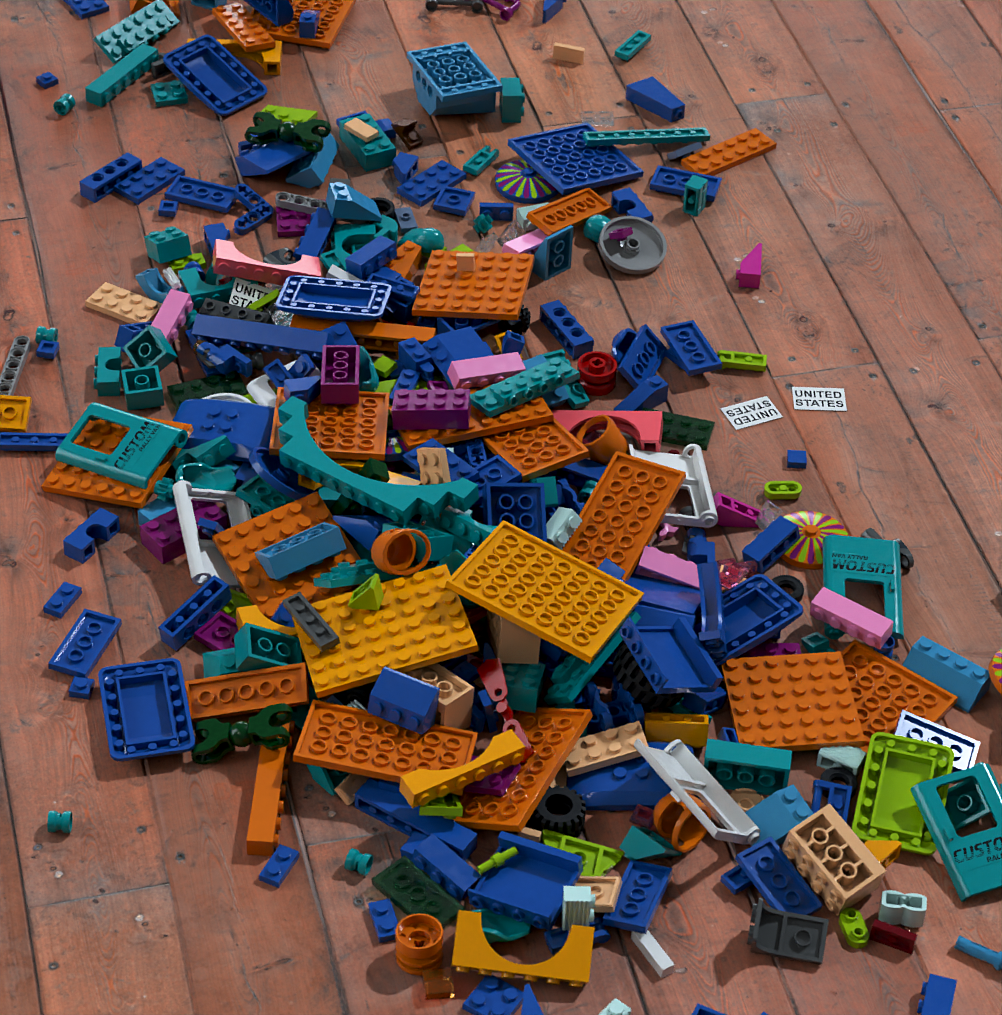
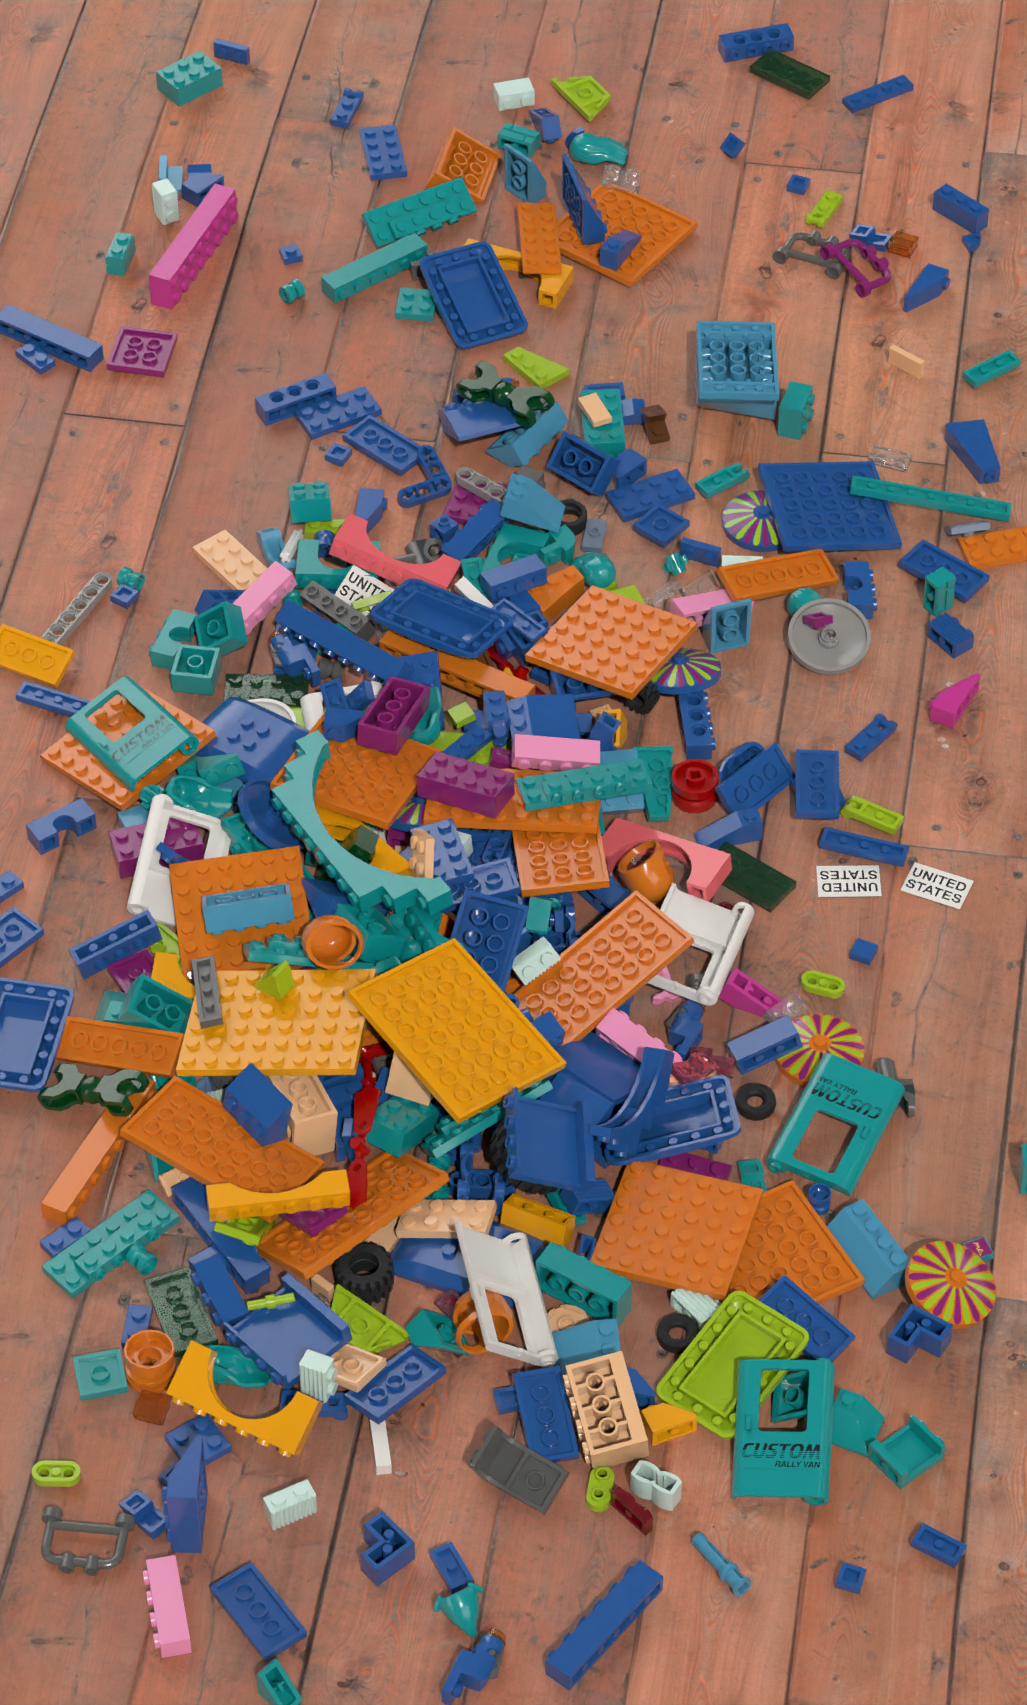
camera: 25 degrees right, 5 degrees up
(287, 238) = (443, 528): none -> blue brick
(321, 858) = (108, 1243): none -> teal plate
(372, 169) = (583, 463): none -> blue brick
(376, 970) = (100, 1374): none -> teal plate
(465, 261) = (610, 612): light nougat tile -> none
(545, 294) = (688, 672): none -> dish
(704, 308) = (870, 737): none -> blue plate
(719, 224) = (950, 635): none -> blue brick
(750, 384) = (864, 847): none -> blue plate
(838, 797) = (658, 1354): blue plate -> none
(851, 618) = (792, 1156): bright pink brick -> none

